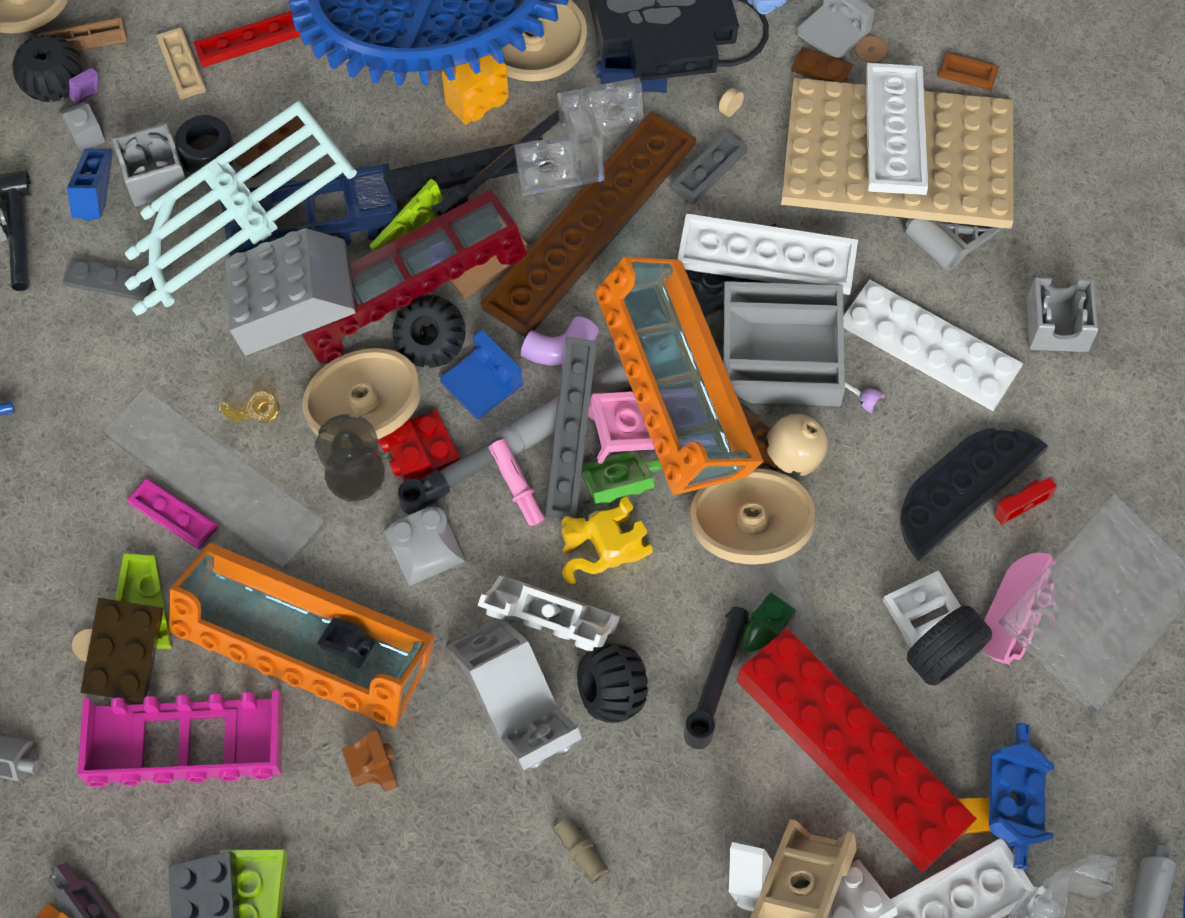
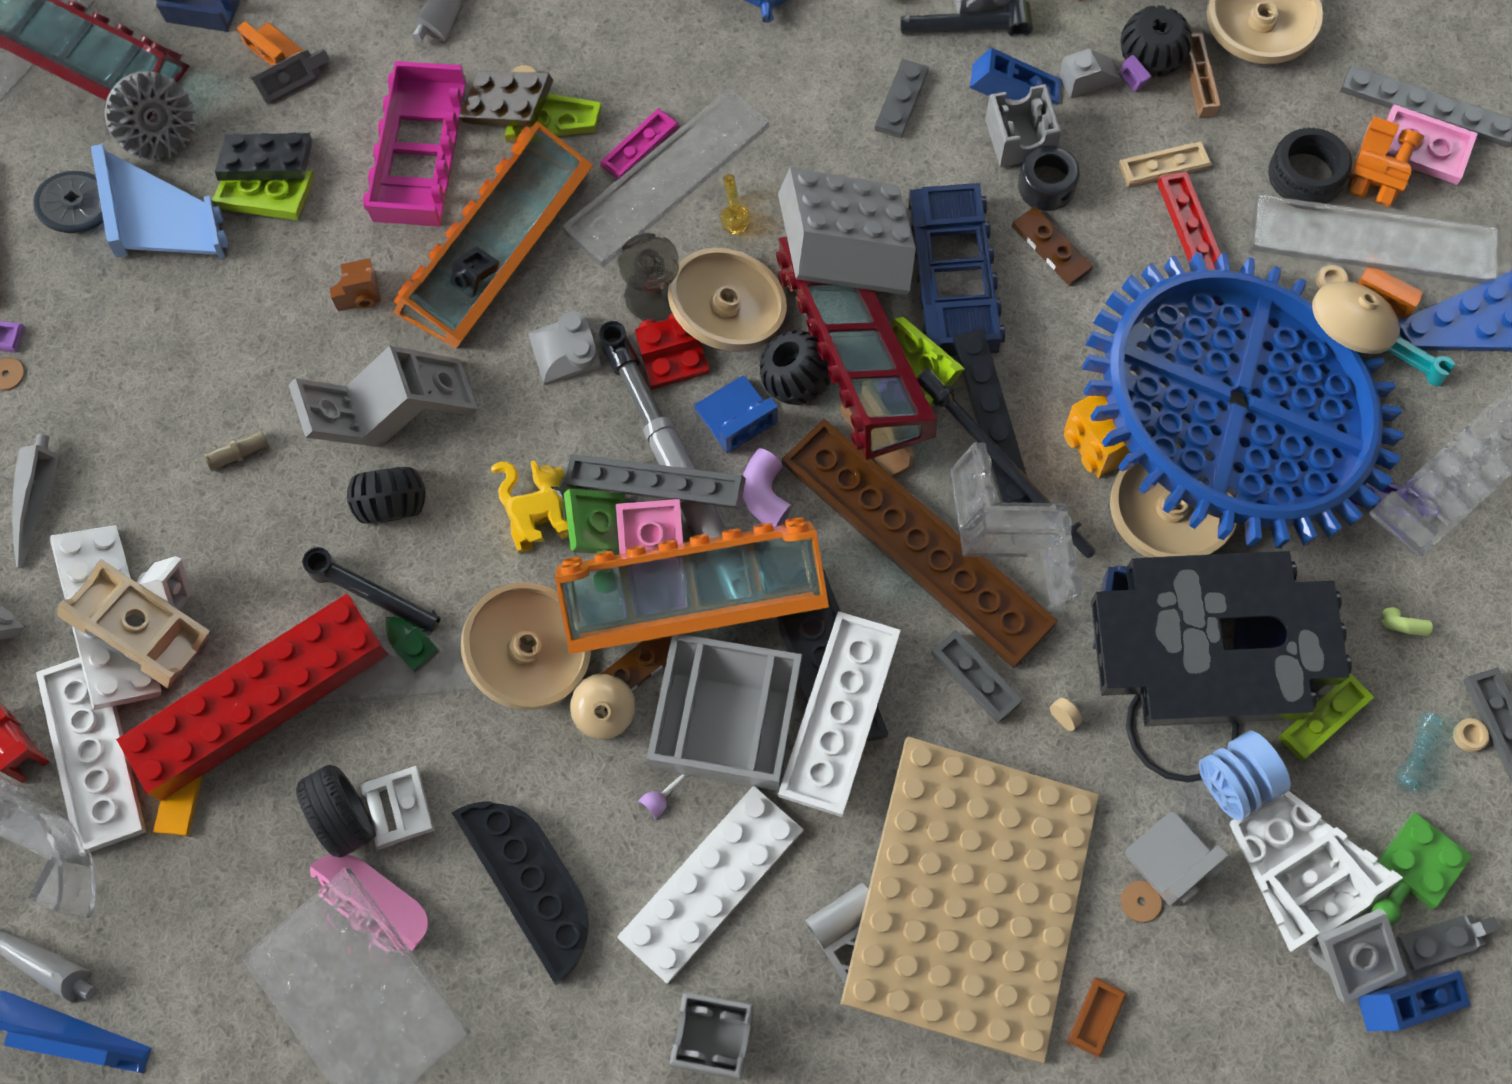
camera: 100 degrees right, 5 degrees up
(238, 200) = (960, 194): light aqua piece -> none
(516, 481) = (606, 432): bright pink axle -> none
(544, 608) = (463, 445): white bracket -> none
(821, 66) = (1114, 833): reddish brown plate -> none
(896, 129) = (993, 888): white plate -> none
(1024, 772) = (150, 856): blue plate -> none
(1031, 496) = (500, 954): red plate -> none

